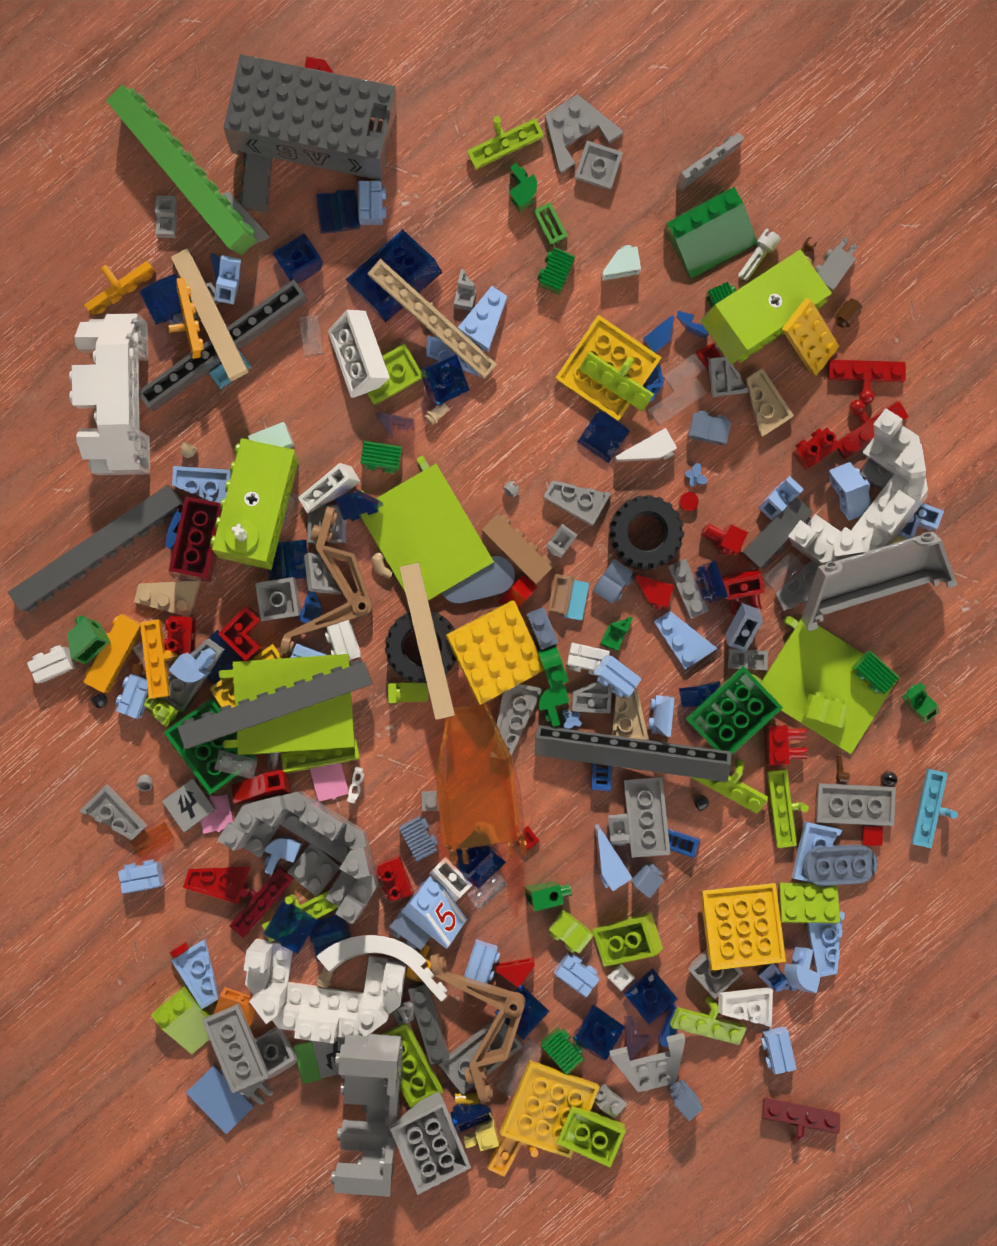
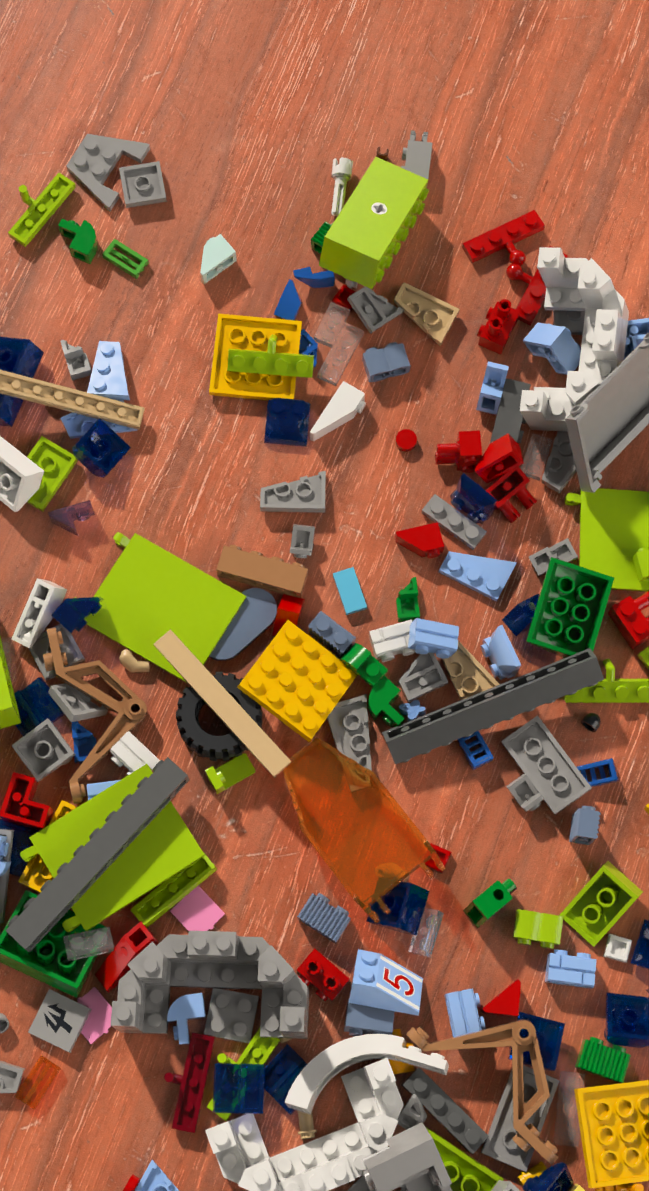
camera: 25 degrees left, 15 degrees down
(141, 877) = (47, 1128): light blue brick -> none
(218, 882) = (134, 1088): red wing -> none
(273, 761) = (124, 919): light grey pin -> none
(353, 796) = (223, 882): white cap -> none
(381, 456) = (76, 555): green brick -> none
(430, 801) = (316, 873): light grey plate -> none
(435, 414) = (107, 491): tan pin -> none
(450, 879) = (382, 940): white brick -> none
(510, 489) = (224, 519): light grey hinge -> none
(556, 271) = (155, 296): green brick -> none
(561, 594) = (331, 592): medium nougat tile -> none
(612, 868) = (535, 829): light blue slope -> none
(613, 581) = (375, 553): sand blue brick -> none
(646, 506) = (381, 461): black tyre -> none
(695, 476) = (399, 414): medium blue piece -> none
(706, 163) = (244, 130): light grey wing -> none
(711, 233) = (283, 189): green slope -> none
(744, 627) = (530, 525): sand blue brick -> none
(751, 563) = (499, 458): none -> red slope
(810, 337) = (432, 228): yellow plate -> none
(848, 313) = (455, 194): reddish brown brick -> none

